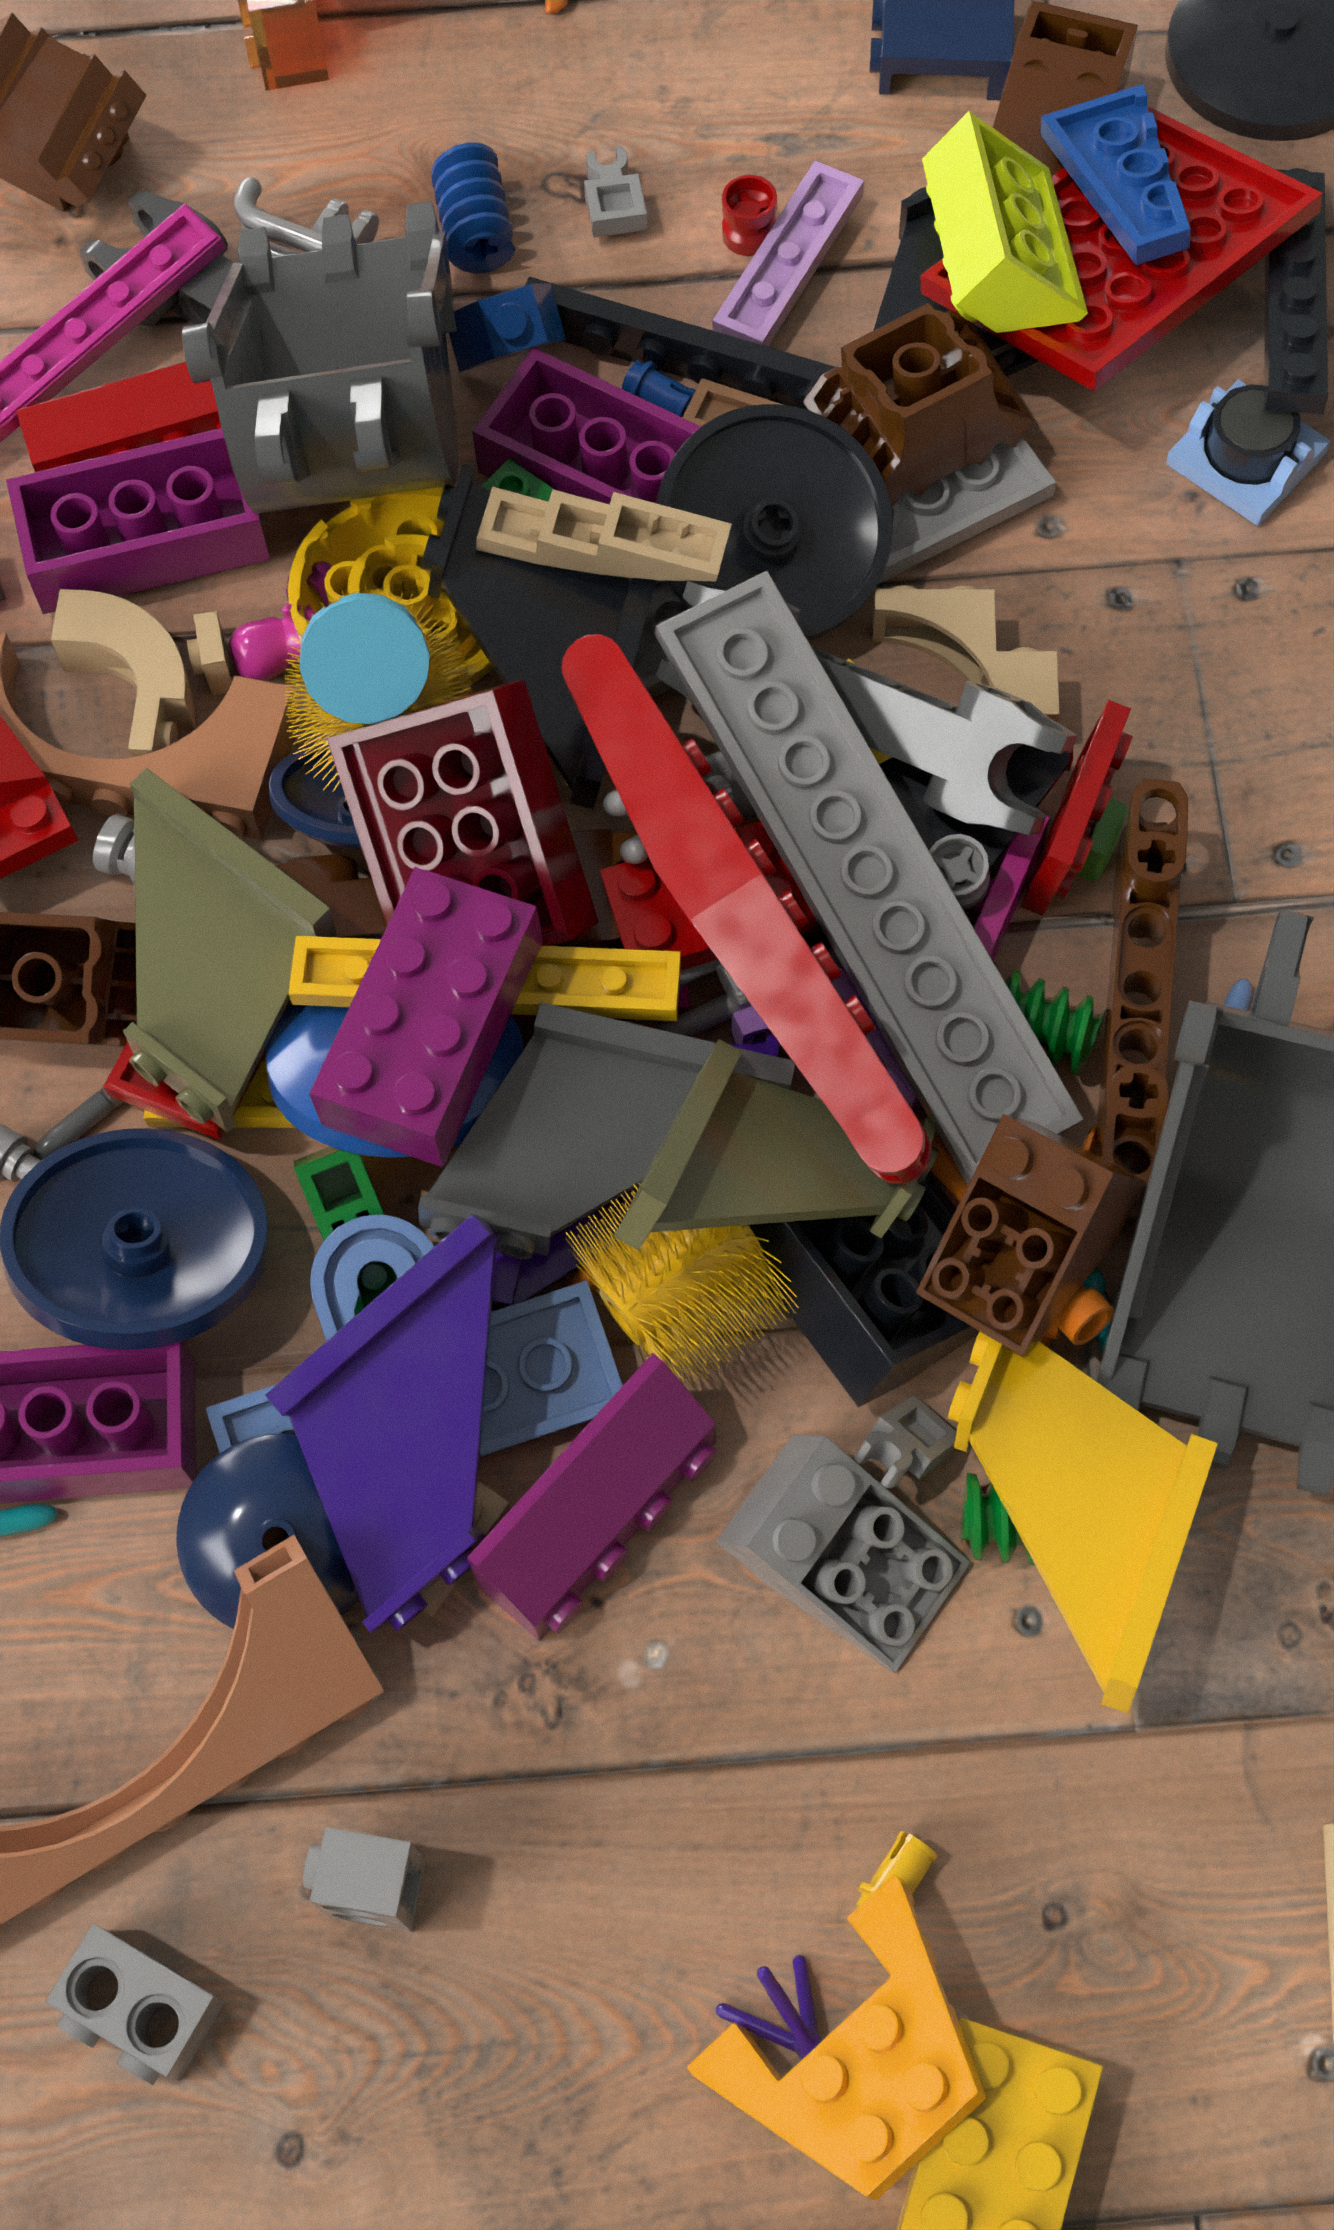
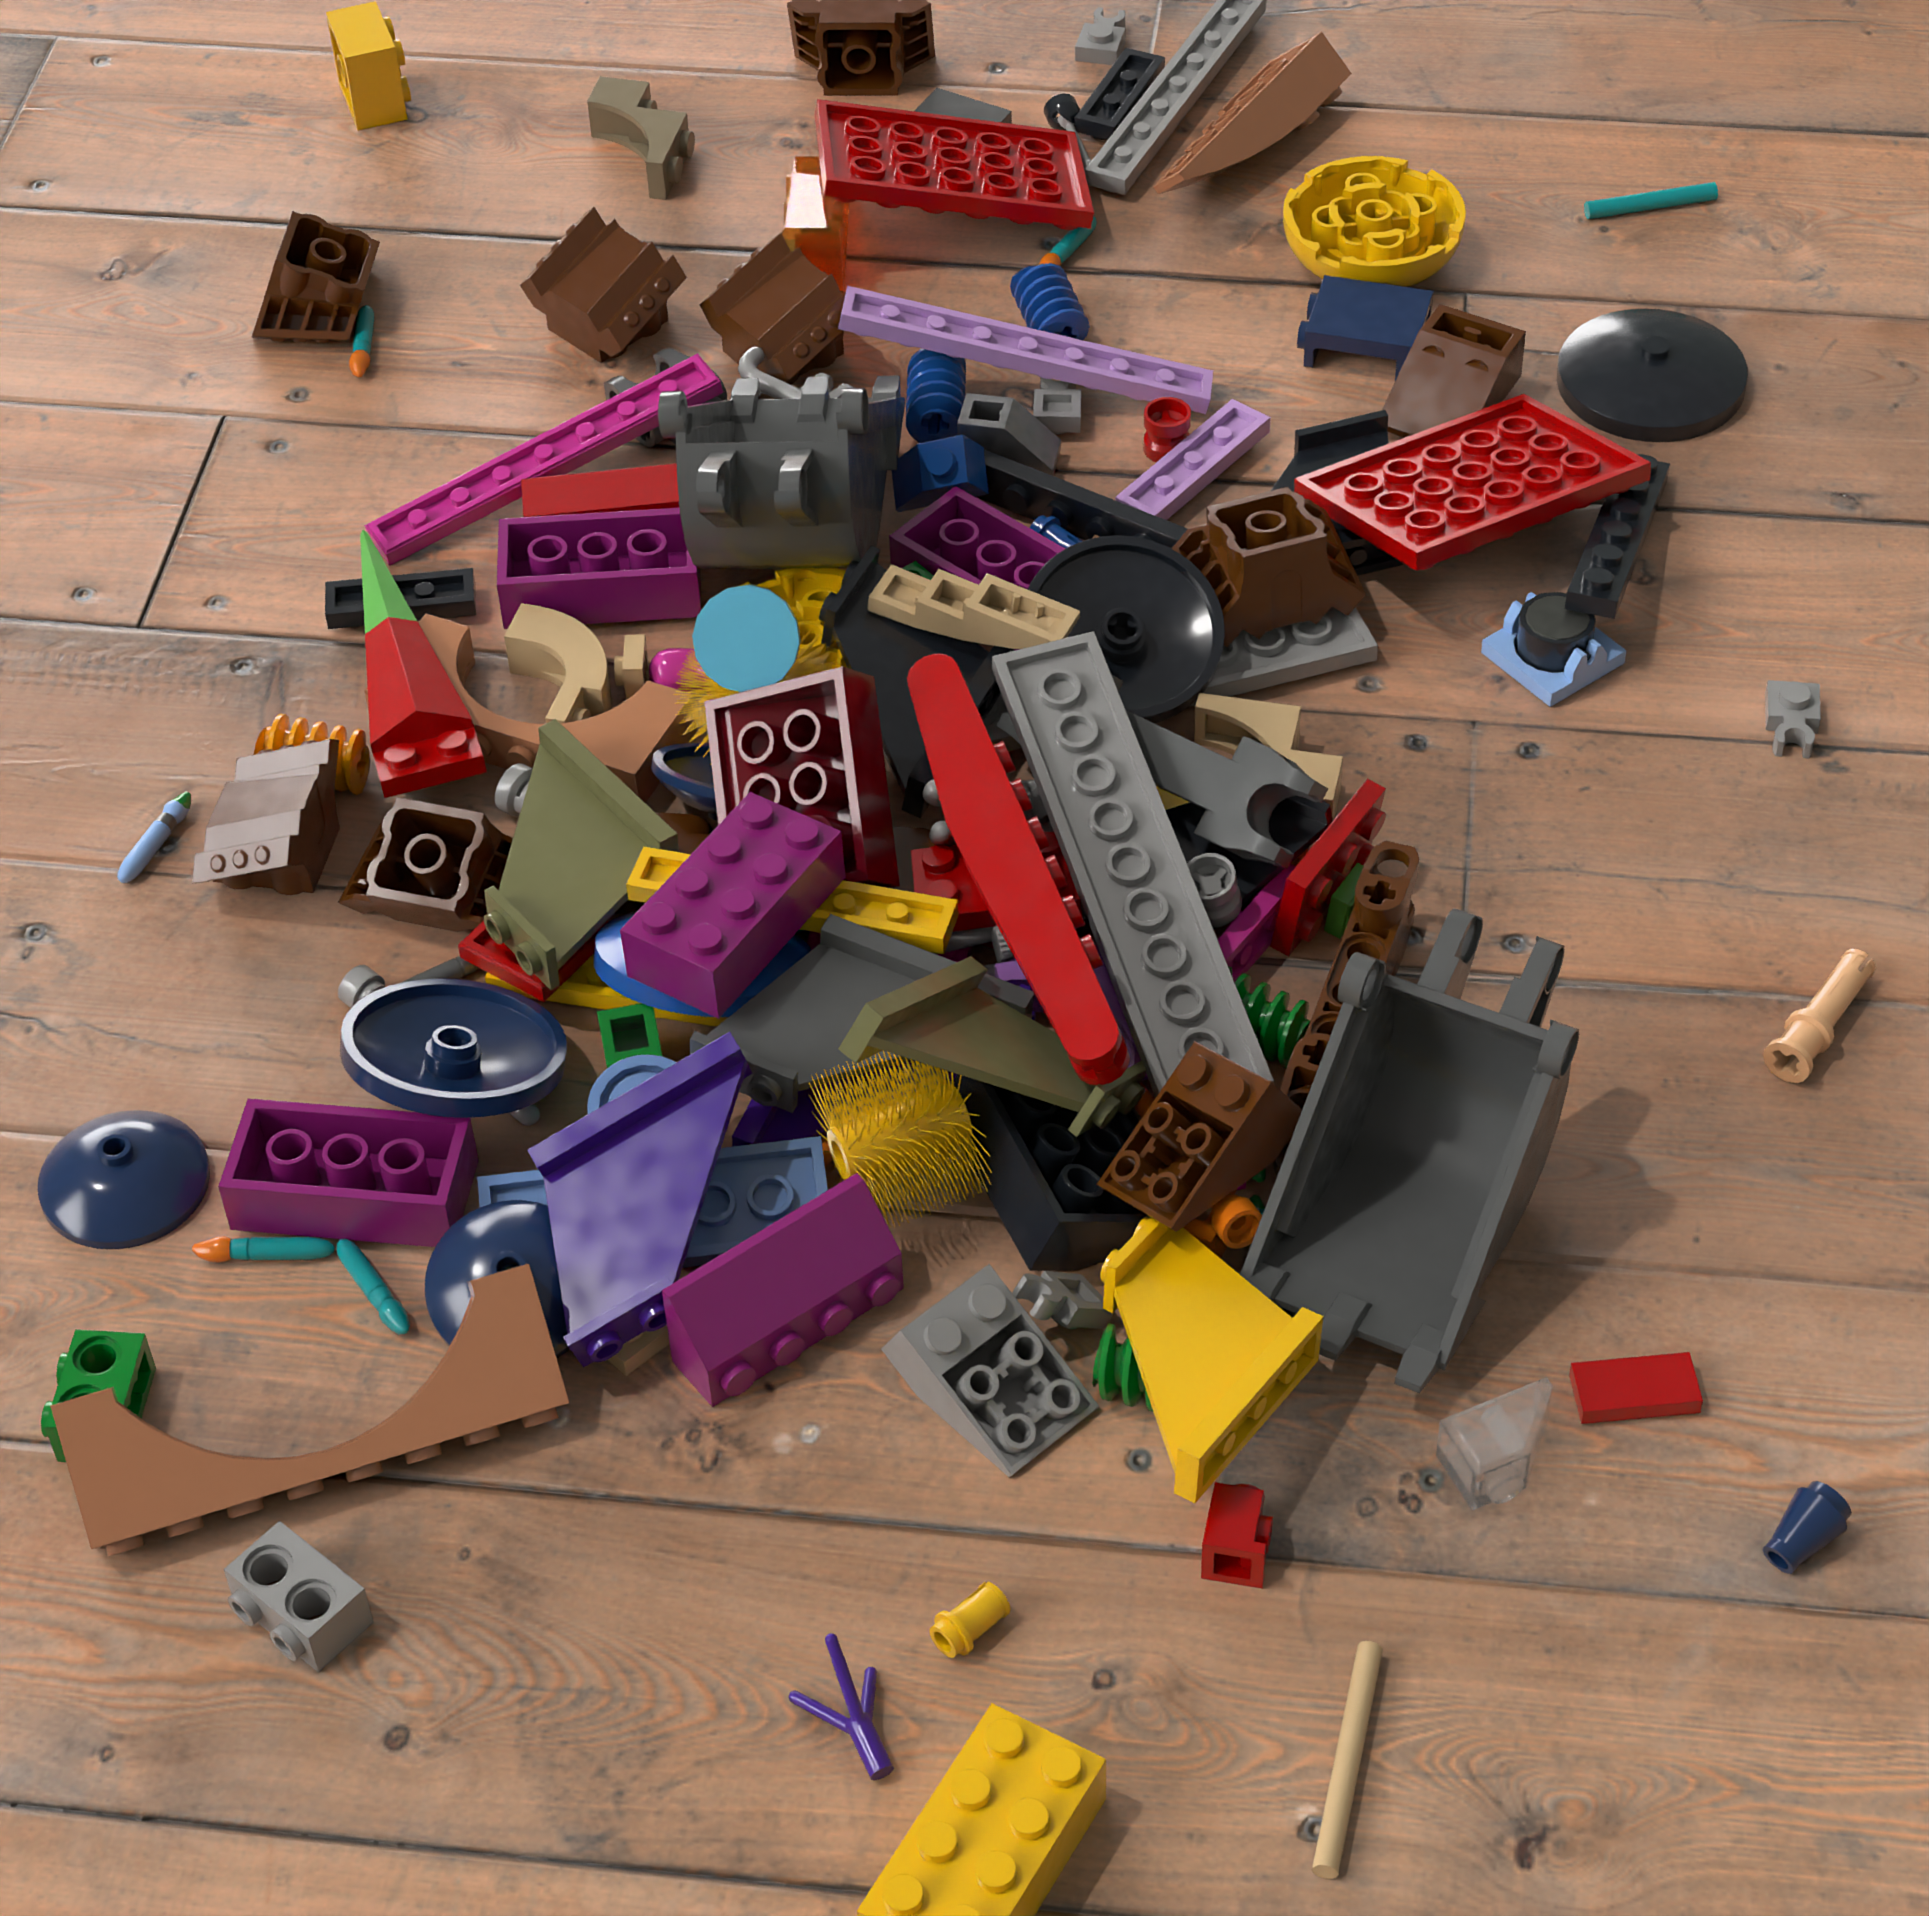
camera: 10 degrees right, 20 degrees down
(144, 1587) = (374, 1288): none -> teal piece
(266, 120) = (782, 308): none -> reddish brown slope
(365, 1878) = (516, 1527): light grey brick -> none
(564, 135) = (1023, 349): none -> lavender plate
(570, 253) = (1009, 431): none -> flat silver slope
(576, 64) = (1049, 301): none -> blue piece
(881, 2080) = (907, 1738): light orange wing -> none
(1001, 231) = (1366, 450): neon yellow slope -> none
(1122, 171) = (1482, 425): blue wing -> none
(1167, 1715) = (1236, 1536): none -> red brick

